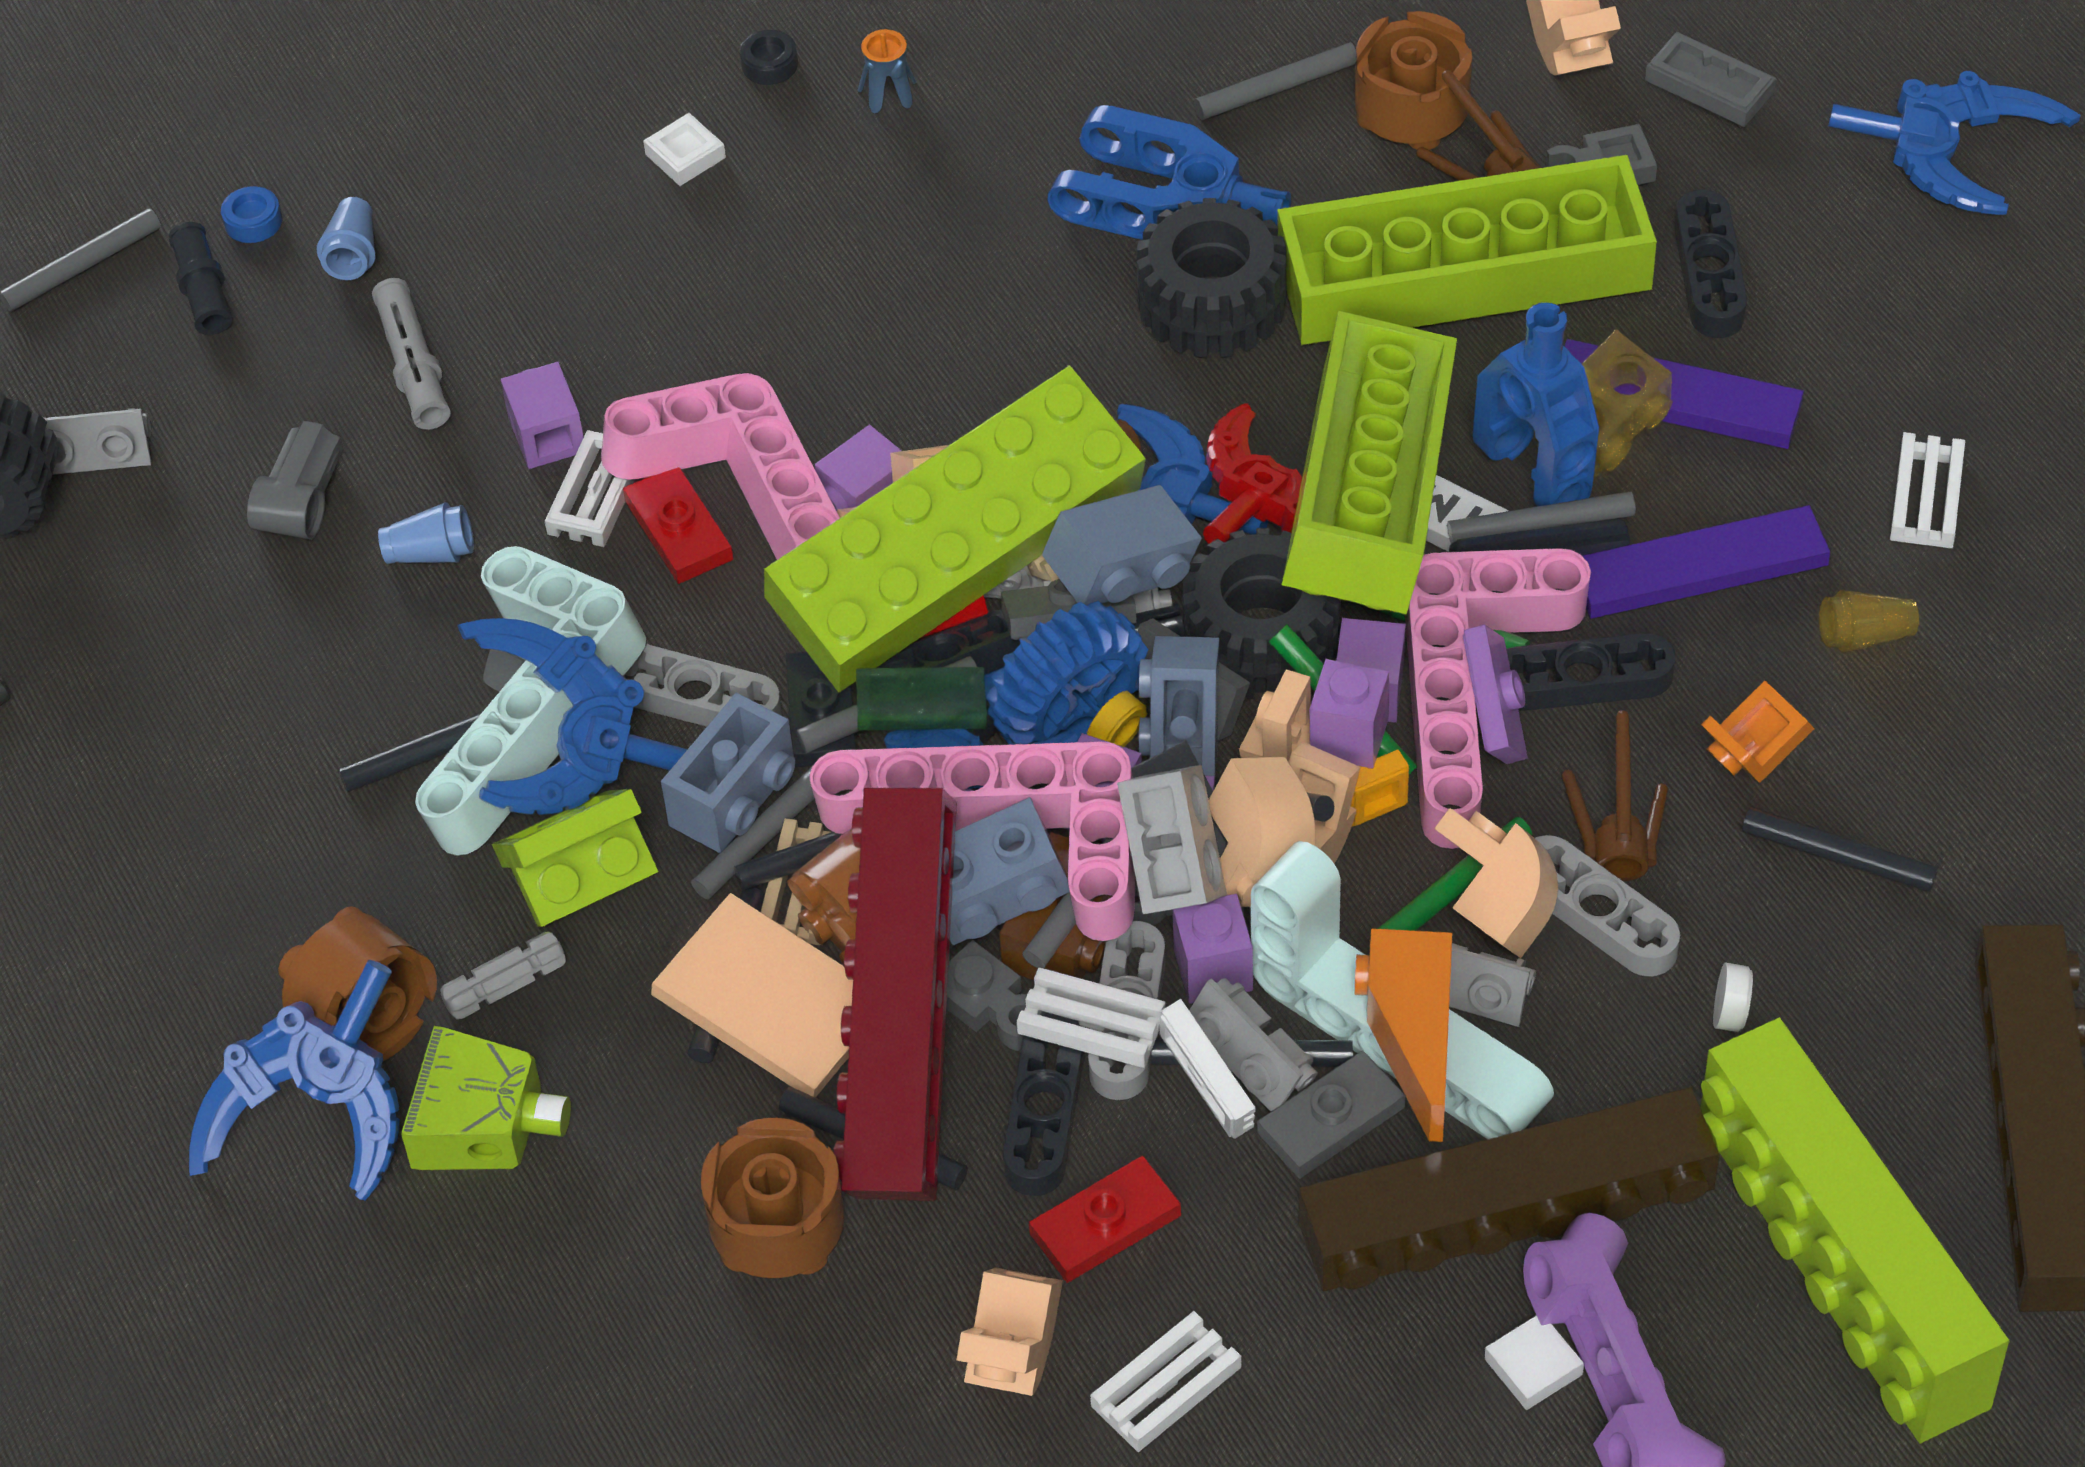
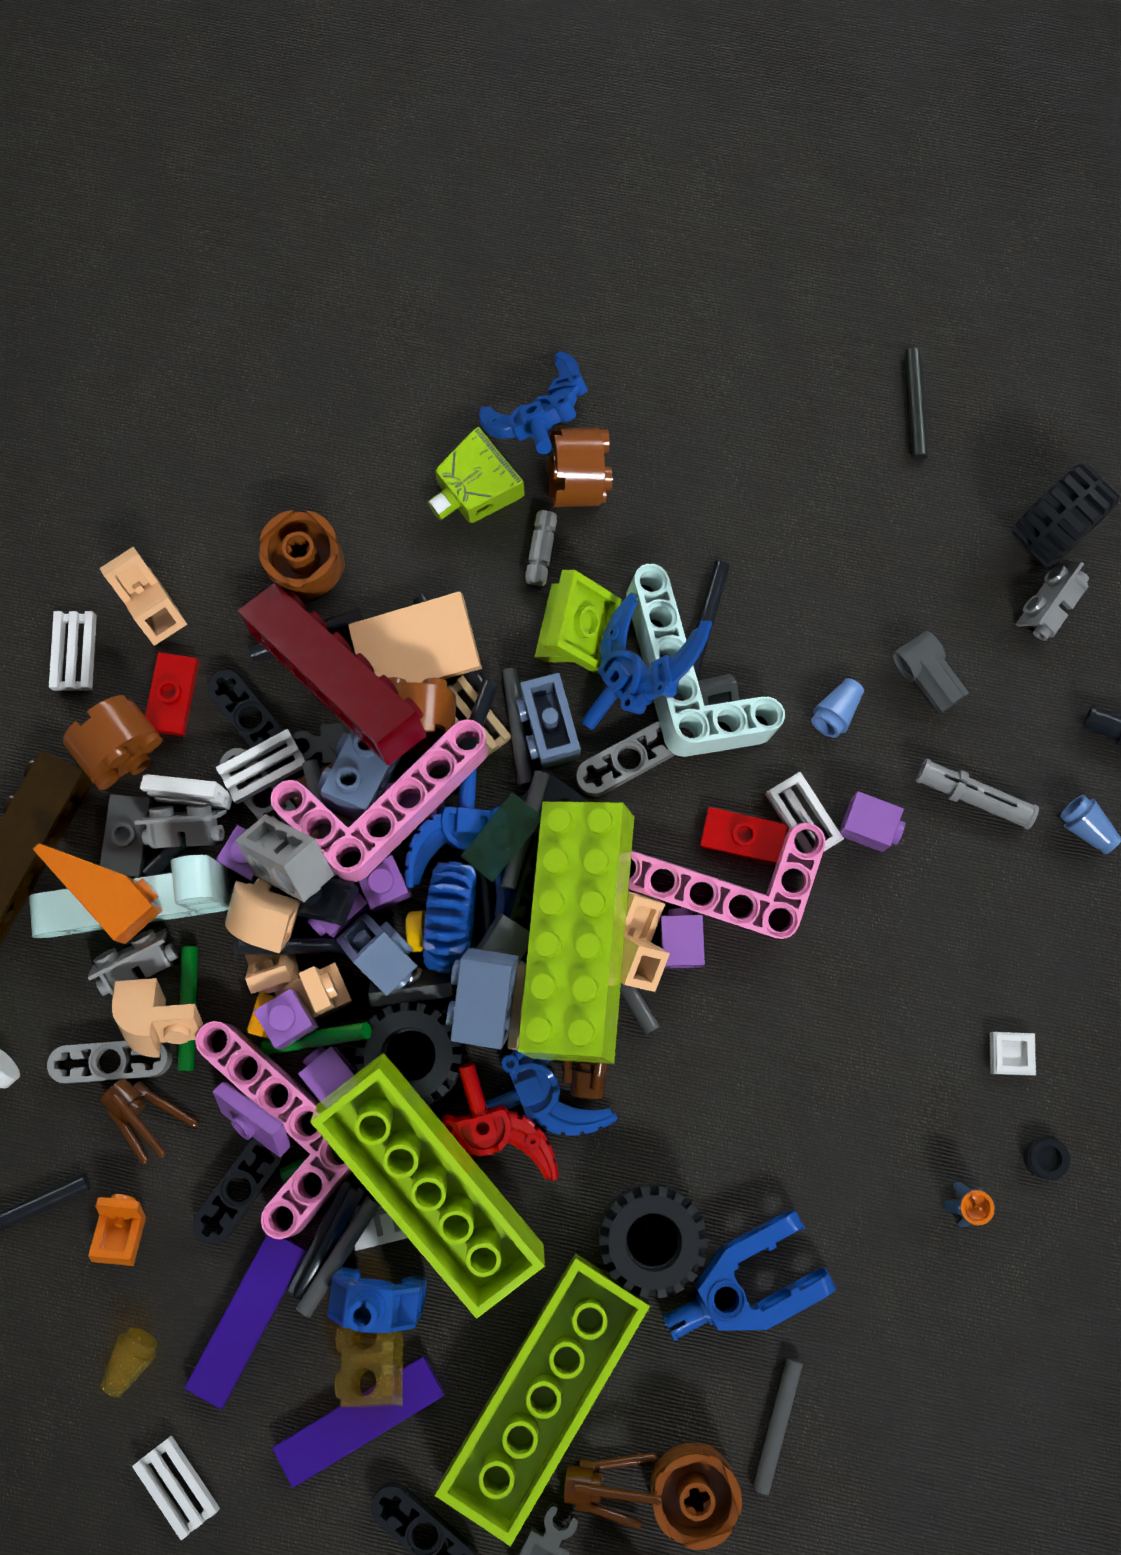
camera: 130 degrees right, 25 degrees up
(1229, 1187) = (112, 741): none -> dark orange brick

